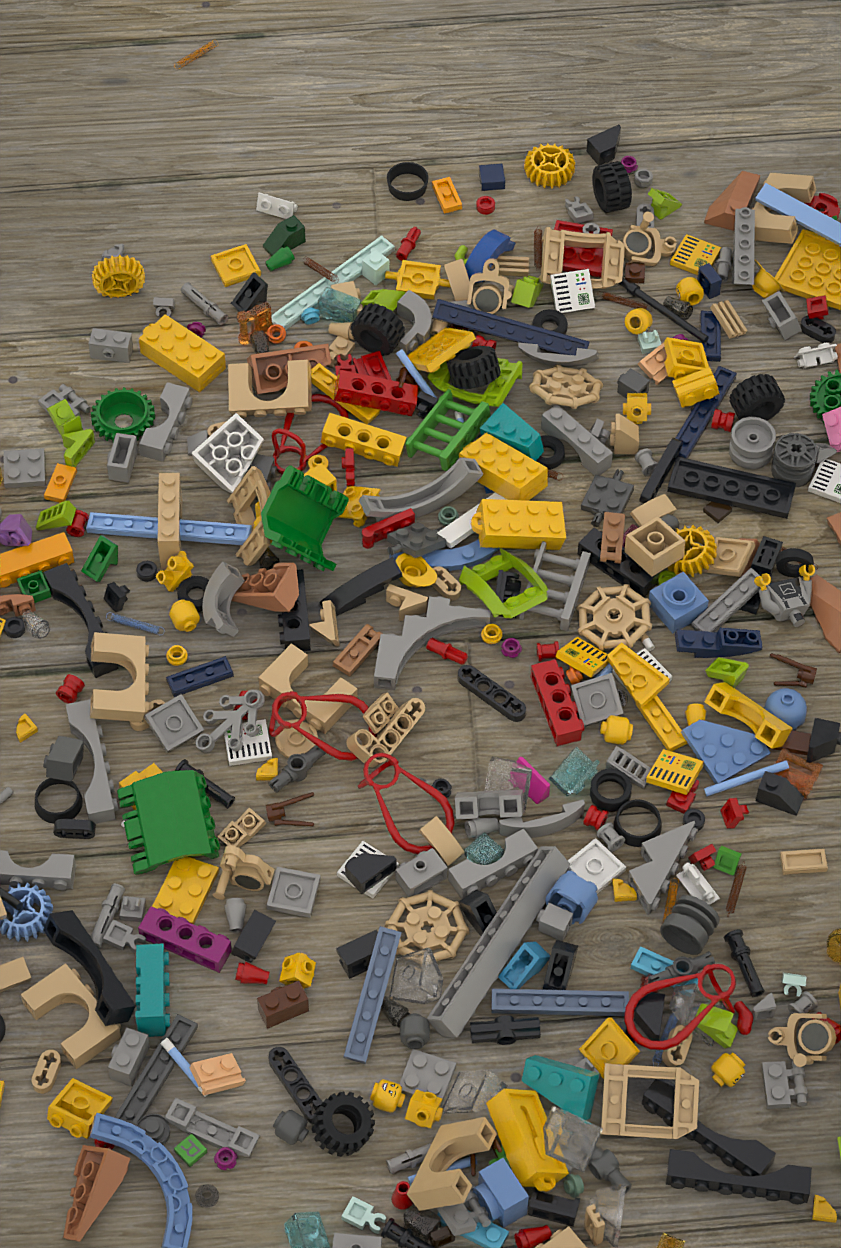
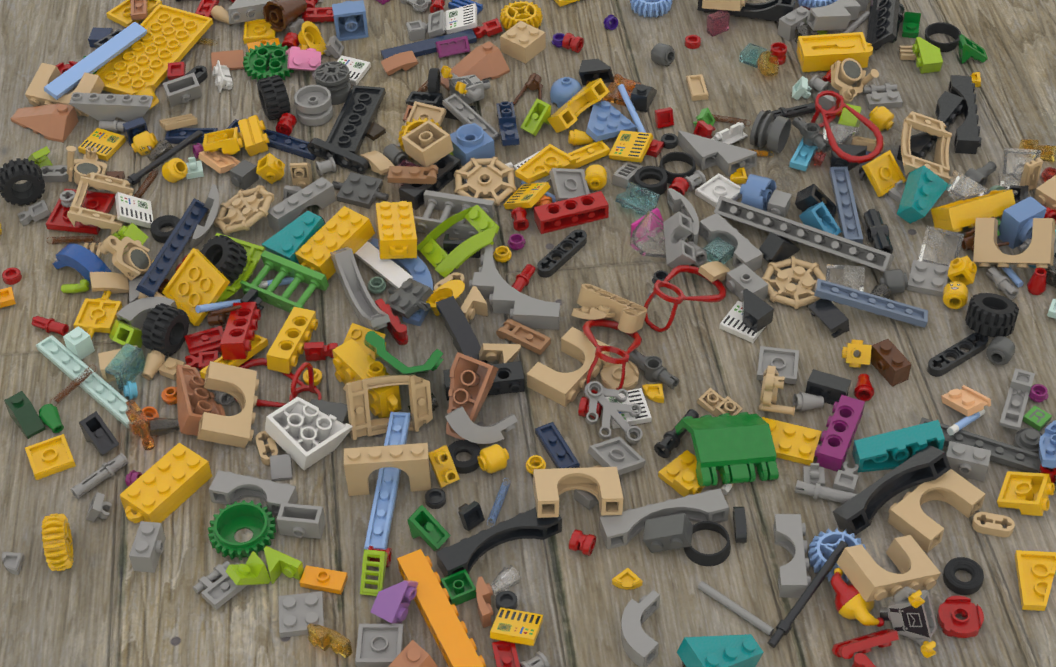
camera: 90 degrees left, 10 degrees down
(276, 811) = (699, 381): reddish brown plant -> none

